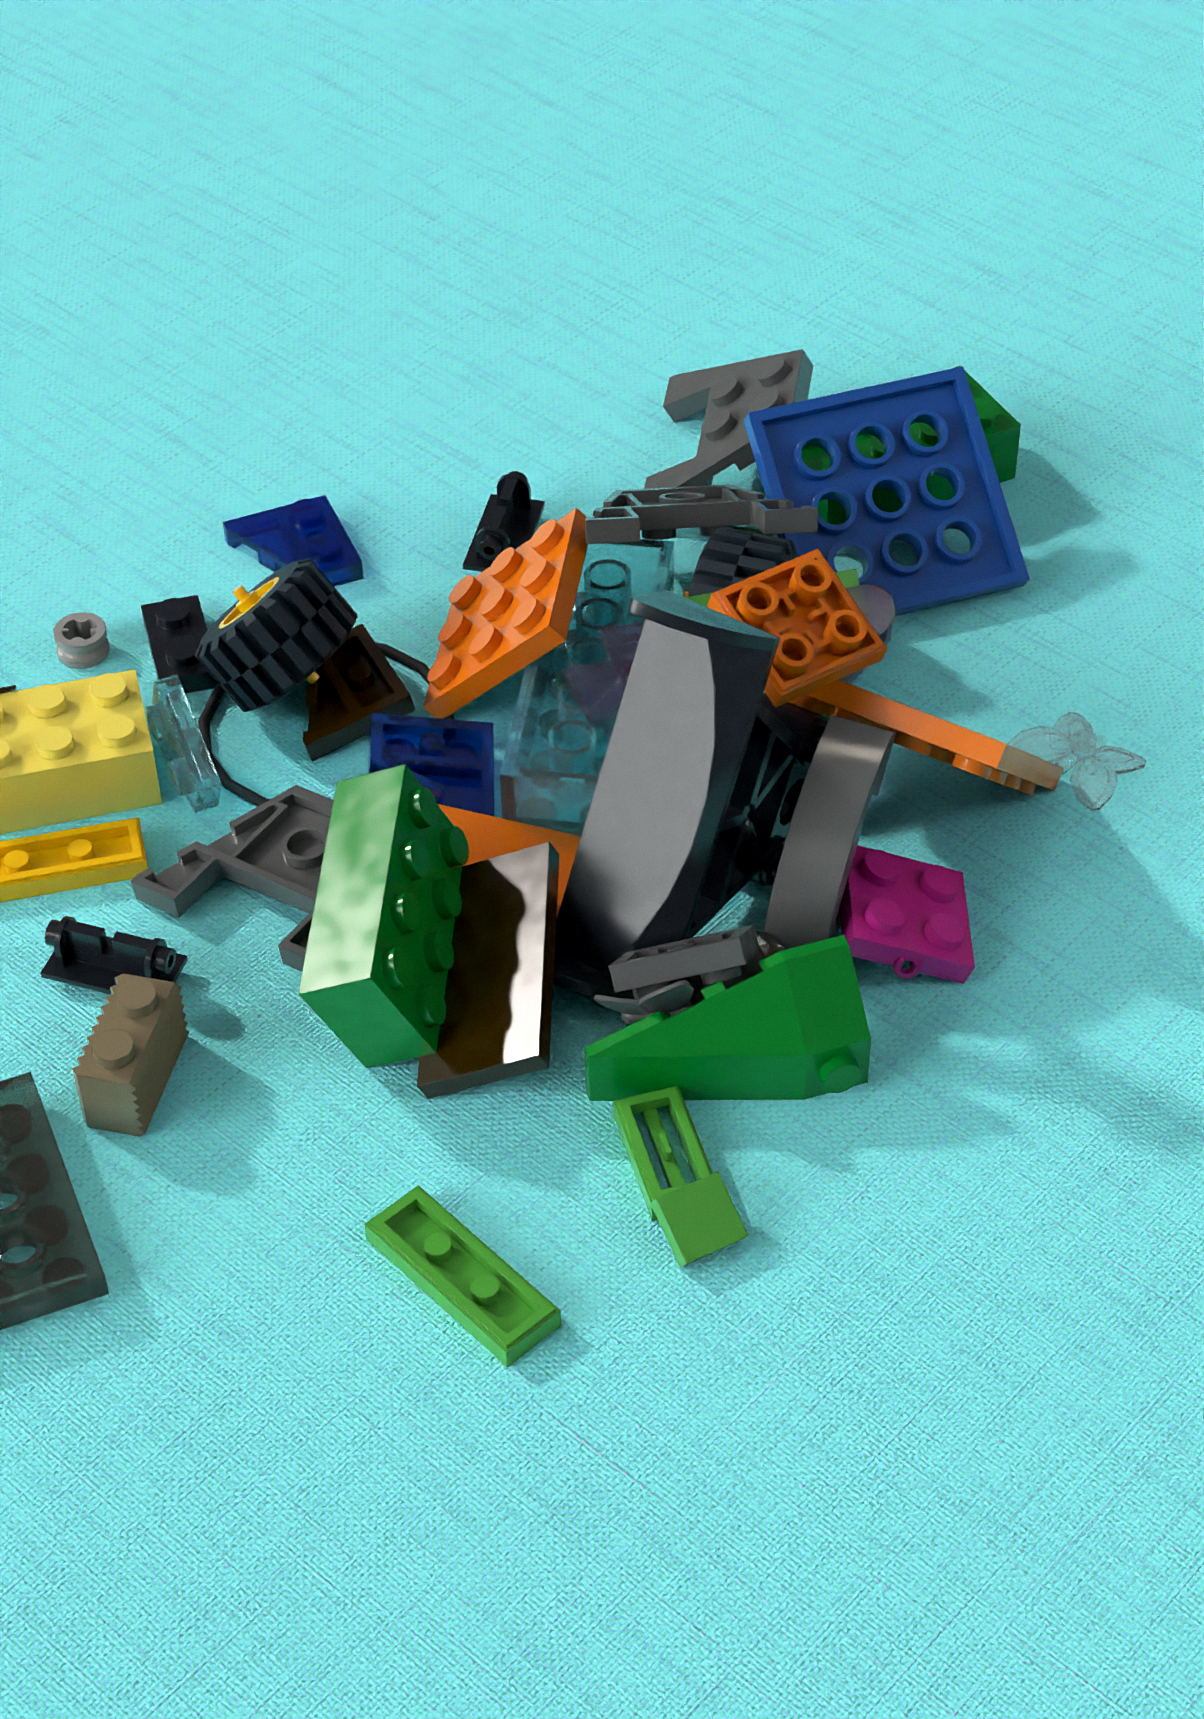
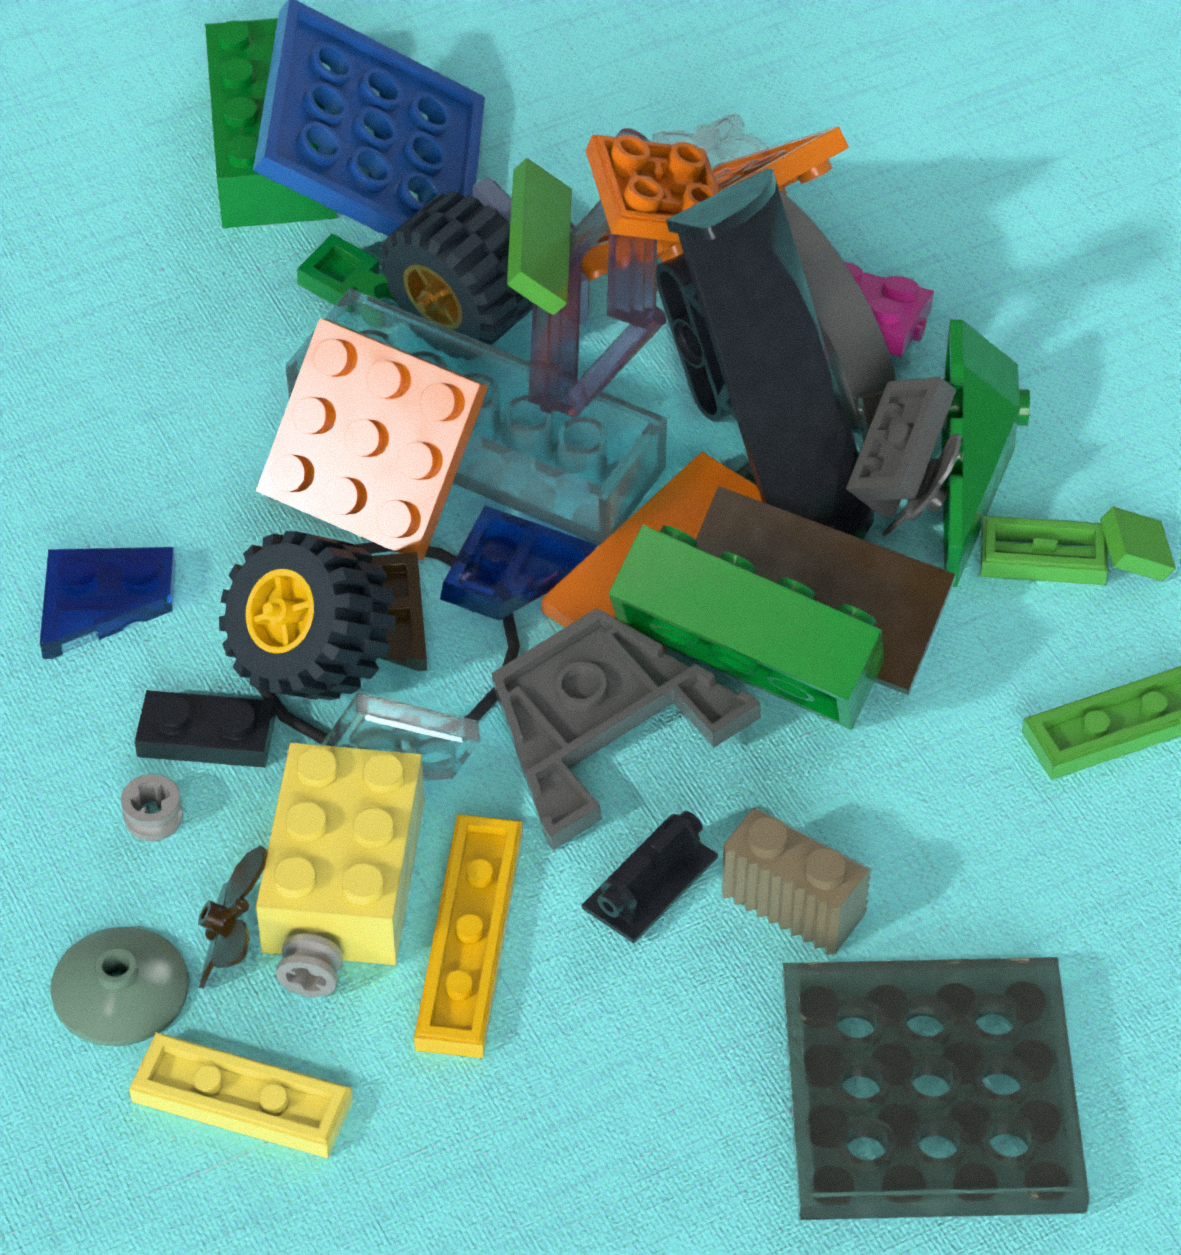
camera: 70 degrees left, 5 degrees up
(505, 523) = (188, 428): black hinge -> none
(663, 510) = (308, 262): dark grey wing -> none
(728, 396) = (177, 183): dark grey wing -> none

